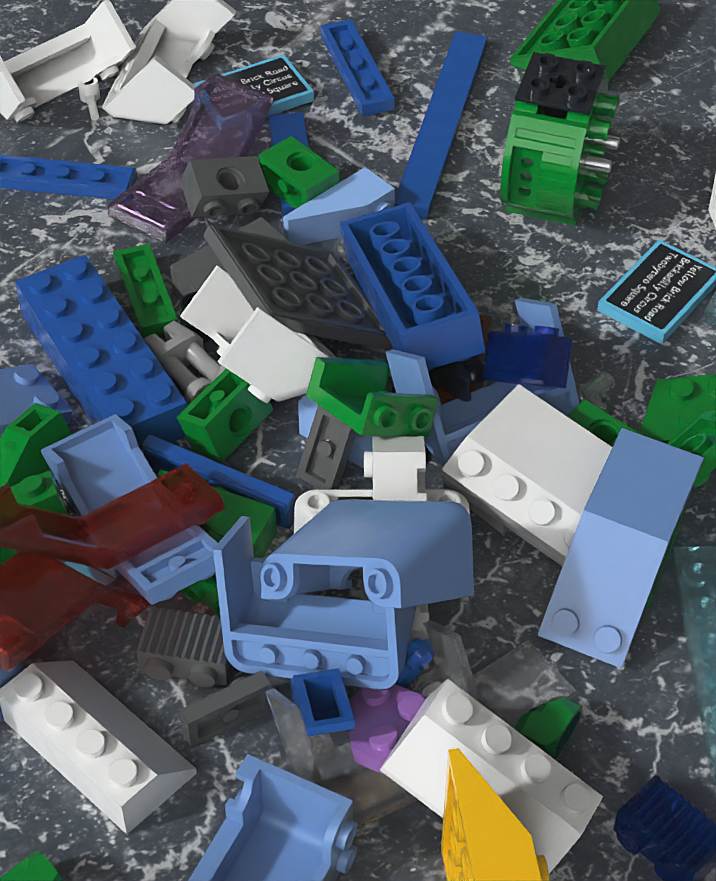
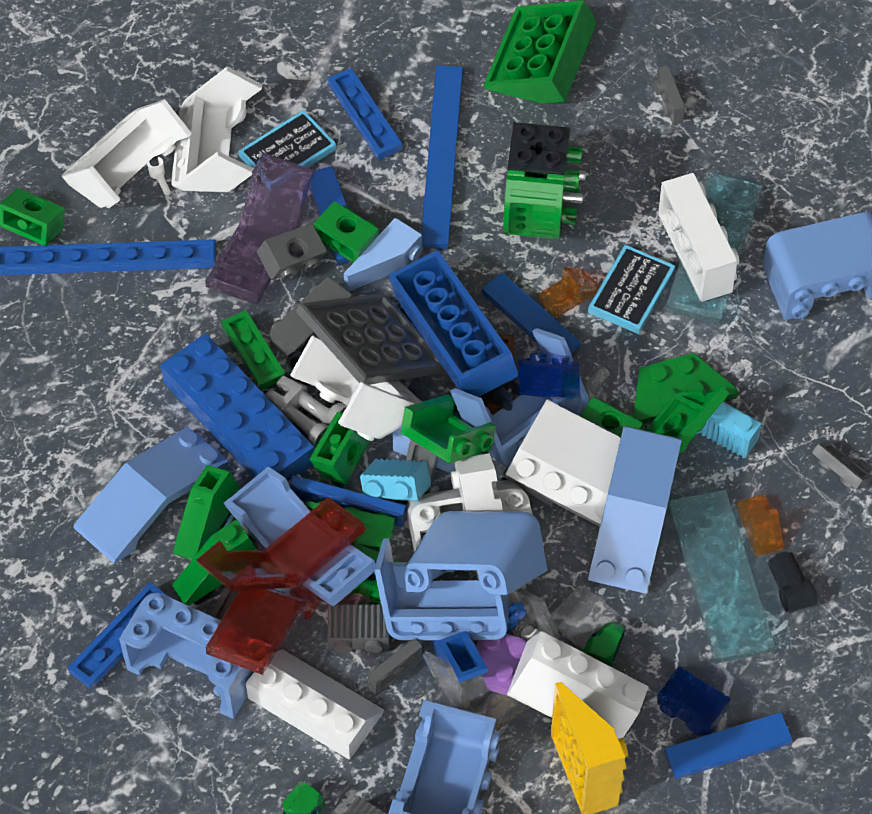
camera: 10 degrees left, 10 degrees up
(290, 460) = (396, 479): none -> medium azure brick
(502, 287) = (524, 310): none -> blue tile
(579, 282) = (569, 292): none -> clear orange slope

